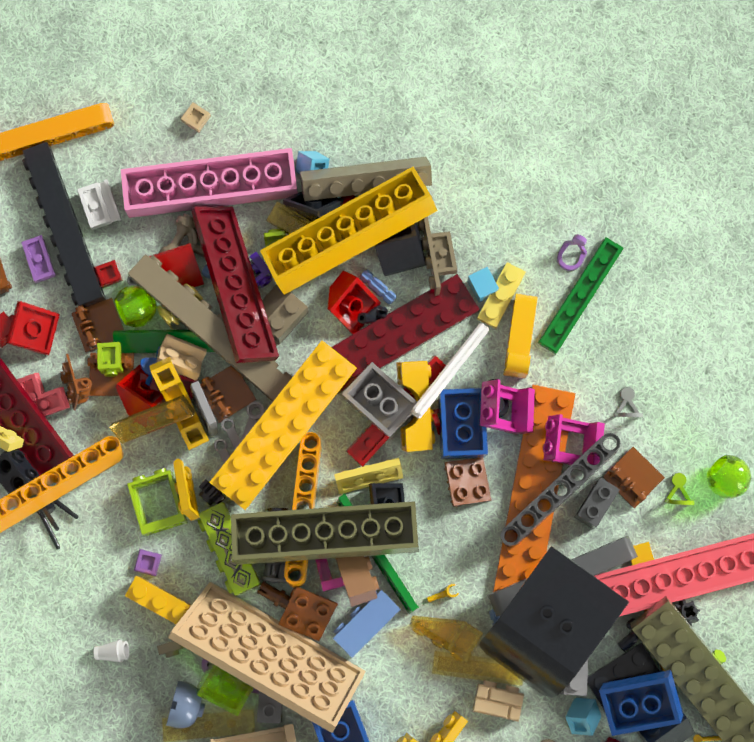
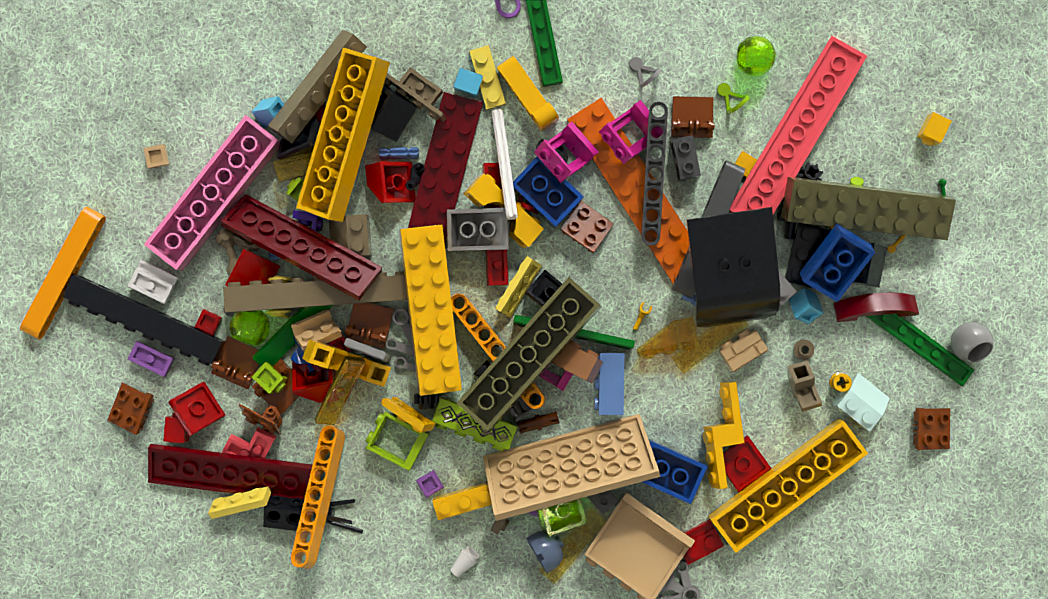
camera: 45 degrees left, 10 degrees up
(307, 613) = (566, 414): dark orange hinge -> none

